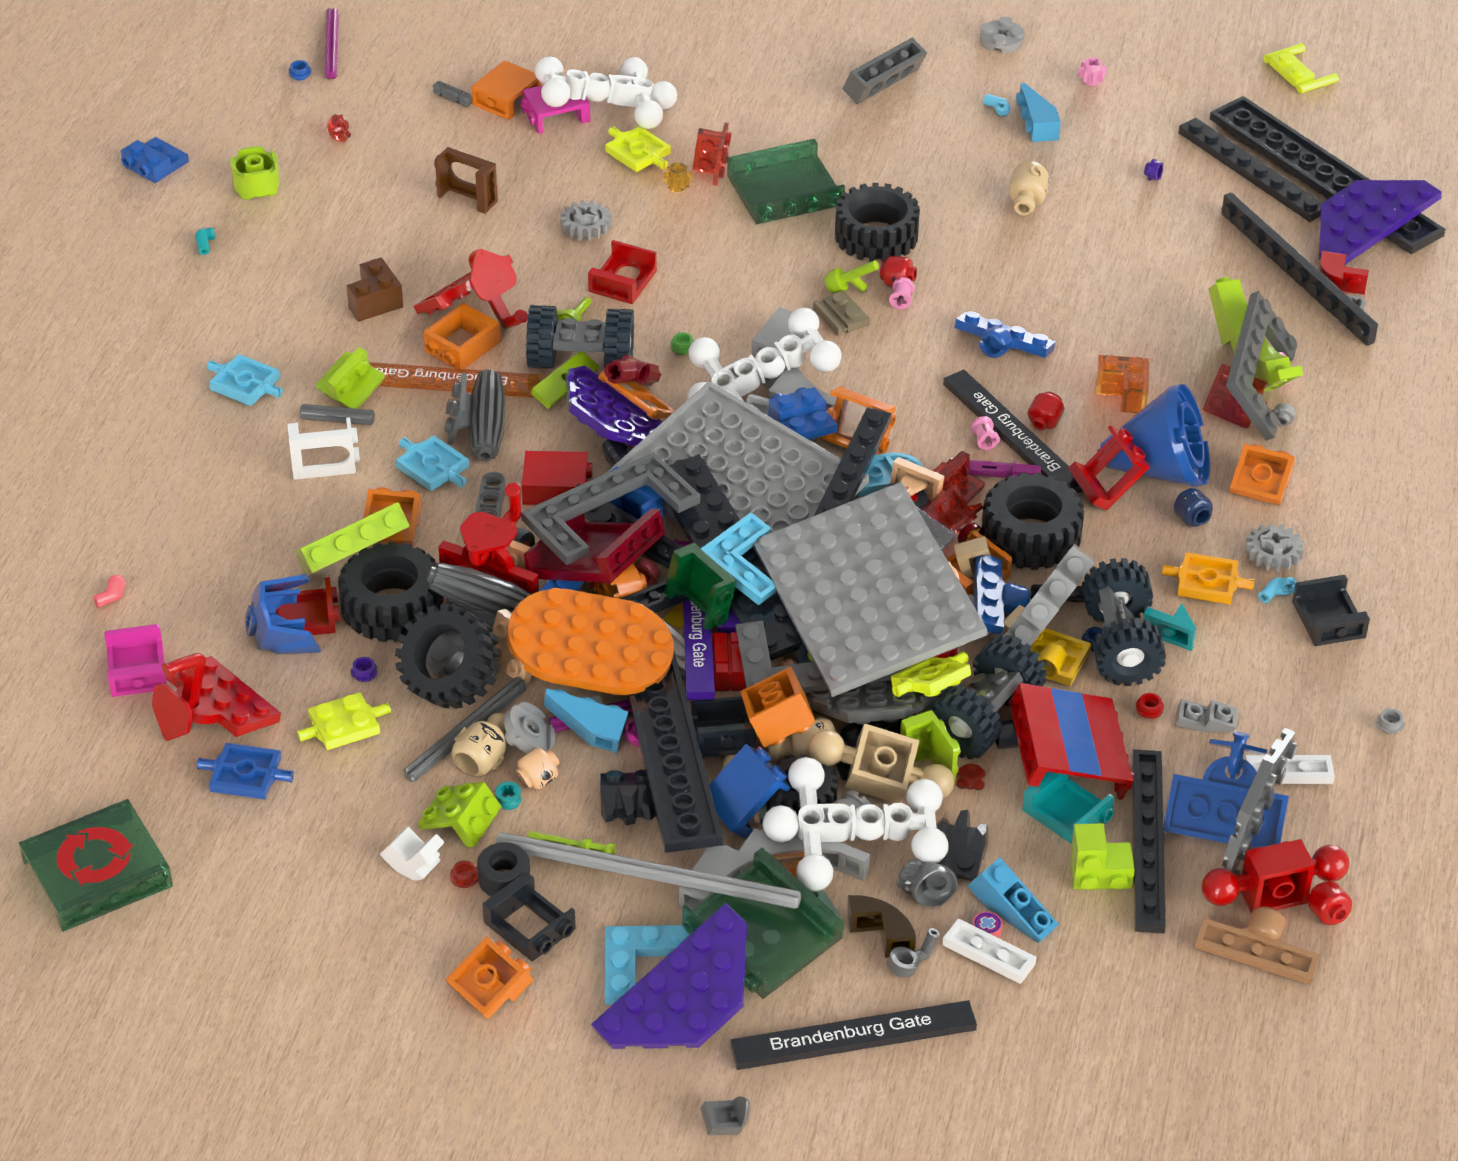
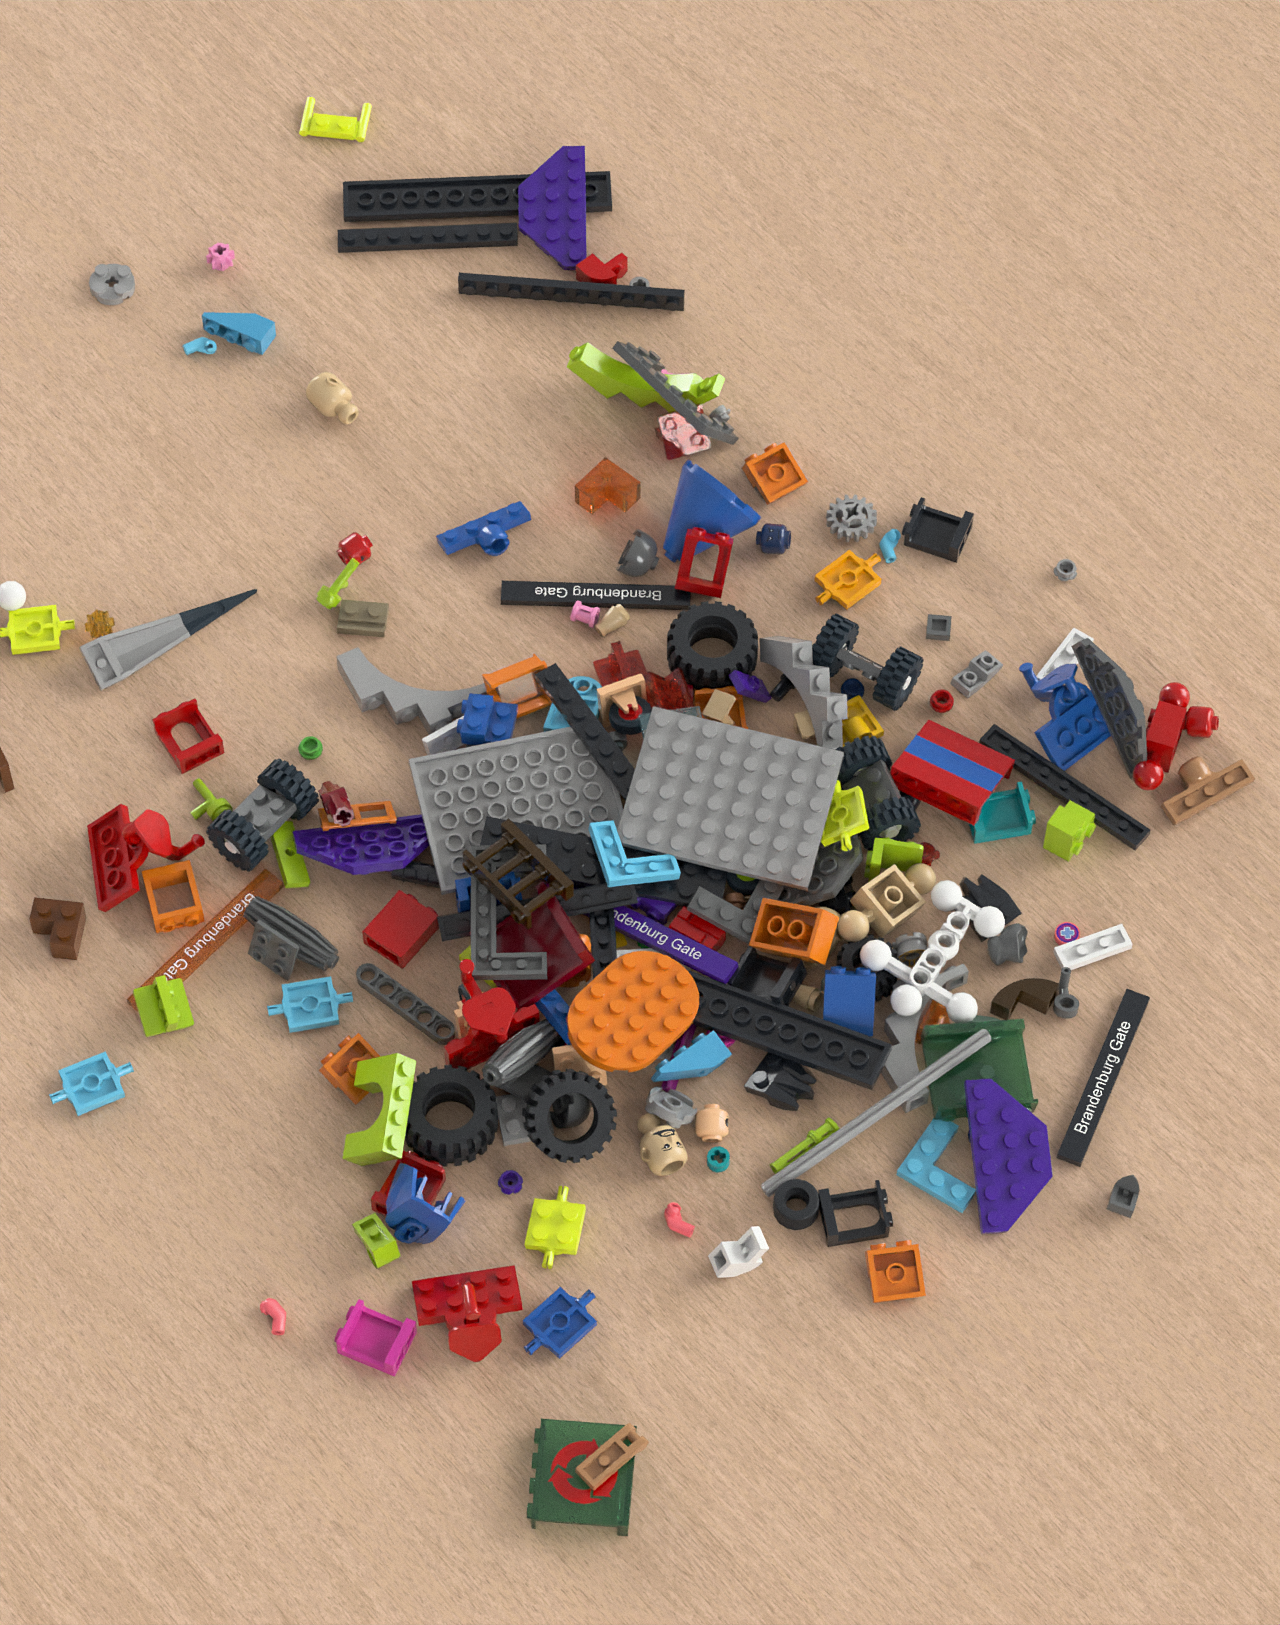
camera: 55 degrees left, 15 degrees up
(119, 860) = (611, 1456): none -> medium nougat plate
(227, 615) = (377, 1240): none -> lime plate
(337, 414) = (190, 1039): dark grey axle -> none
(341, 437) = (228, 1090): white panel -> none
(417, 797) = (675, 1222): none -> coral arm
(445, 744) = (629, 1155): dark grey axle -> none
(464, 874) = (777, 1233): clear red plate -> none
(465, 808) = (712, 1200): lime bracket -> none
(585, 220) = (98, 722): light grey gear -> none
(665, 498) = (526, 853): none -> dark brown fence
(668, 202) = (127, 651): none -> light grey plate
(702, 583) = (636, 900): dark green panel -> none
(712, 152) = (103, 580): clear red bracket -> none
(769, 362) = (352, 741): white piece -> none
(783, 181) = (171, 556): clear green panel -> none
(877, 205) = (280, 502): black tyre -> none
(884, 70) = (96, 395): dark grey brick -> none
(901, 296) = (379, 563): bright pink bush -> none
(992, 595) = (772, 719): blue plate -> none
(997, 452) = (612, 620): none -> tan cone
(1001, 469) = (639, 624): magenta axle -> none
(1012, 901) = (1057, 905): dark azure slope -> none
(1018, 562) = (750, 686): none -> dark purple plate
(1046, 410) = (595, 559): red head -> none
(1077, 430) = (638, 555): none -> dark grey cylinder
(1154, 170) = (376, 301): dark purple plate -> none
(1174, 629) = (882, 633): teal slope -> none
(1225, 663) = (938, 627): none -> dark grey plate

